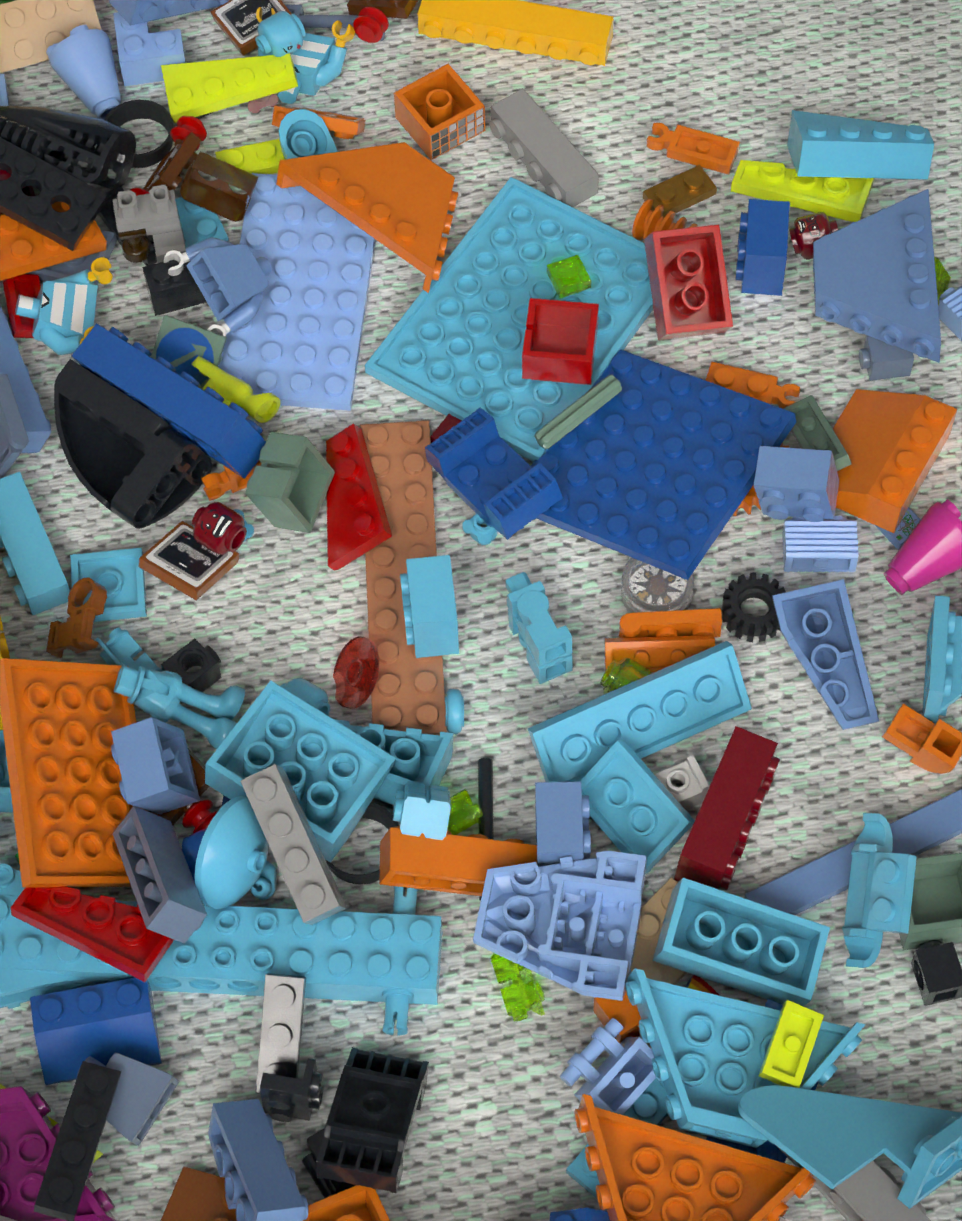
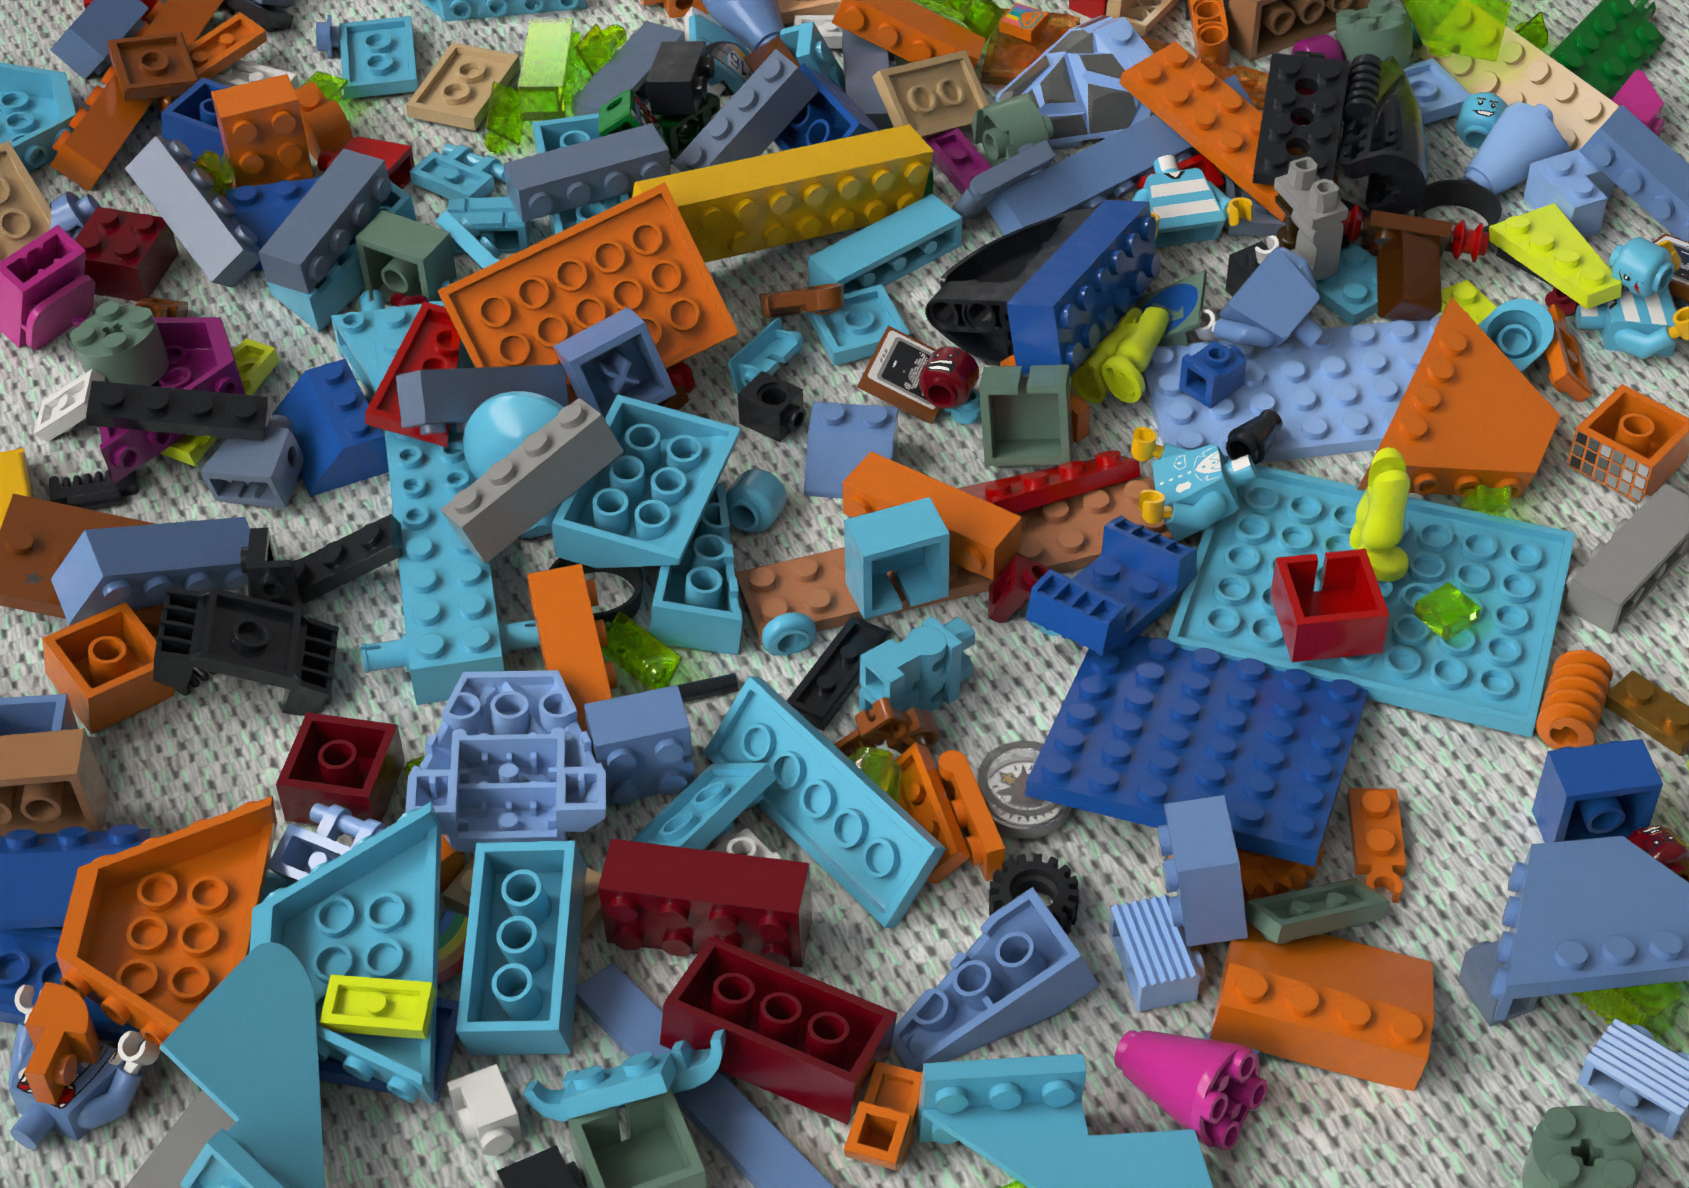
camera: 75 degrees right, 15 degrees down
(33, 77) = (1478, 117): none -> medium azure head
(162, 692) = (718, 368): medium azure piece -> none
(267, 623) = (841, 439): none -> medium blue slope
(280, 345) = (1220, 366): none -> blue brick
(356, 672) = (807, 539): clear red dish -> none
(360, 340) = (1254, 436): none -> black cone
(372, 578) = (980, 532): none -> orange brick
(397, 393) = (1190, 485): none -> medium azure torso
(422, 810) = (612, 591): brick -> none
(460, 539) = (1013, 587): none -> dark red bracket
(466, 215) = (1487, 500): none -> clear neon green plate
(493, 275) = (1382, 516): none -> neon yellow piece
(496, 687) = (836, 672): none -> black tile
(520, 1060) = (340, 764): none -> dark red brick
(578, 412) = (1242, 653): sand green axle -> none
(583, 653) = (895, 726): none -> dark orange piece
(688, 282) = (1487, 717): red brick -> none
(850, 776) = (780, 1028): none -> dark red brick
(864, 998) = (485, 1110): none -> white brick

